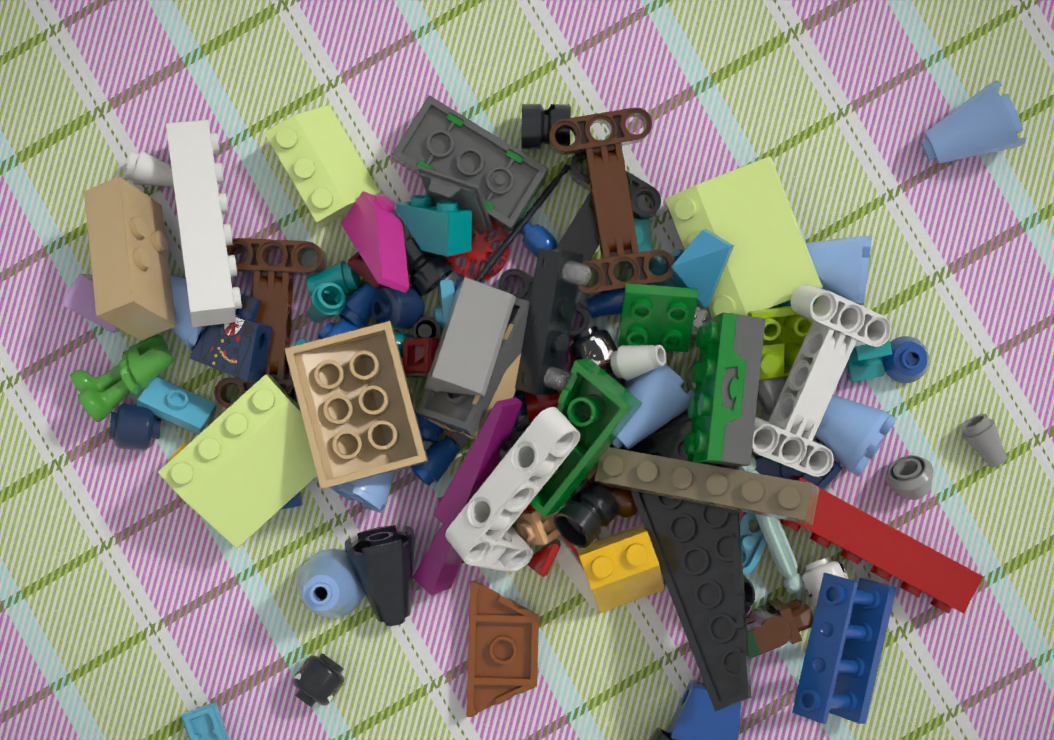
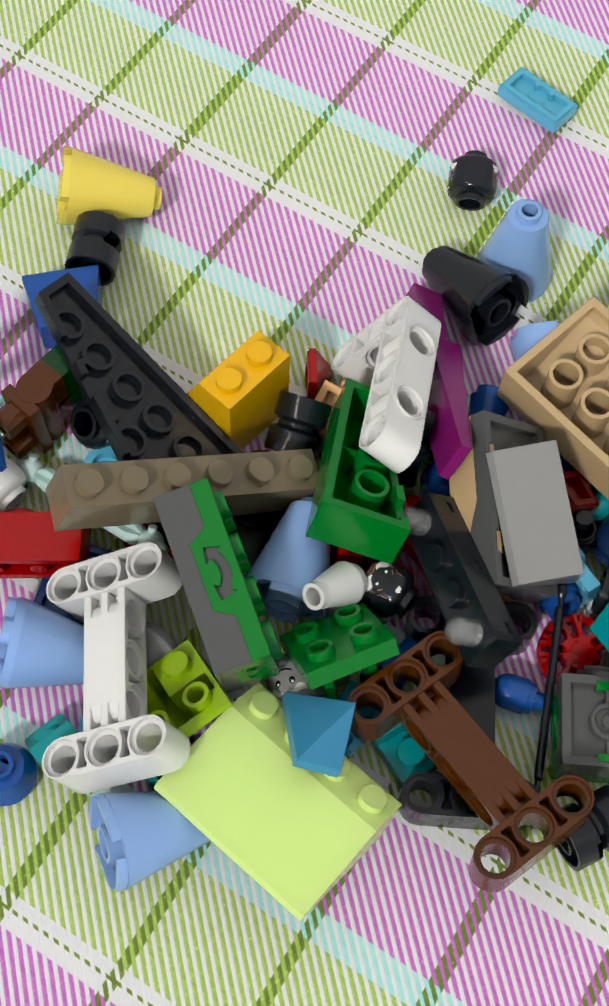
camera: 150 degrees right, 25 degrees down
(499, 649) = (314, 280): dark orange wing -> none

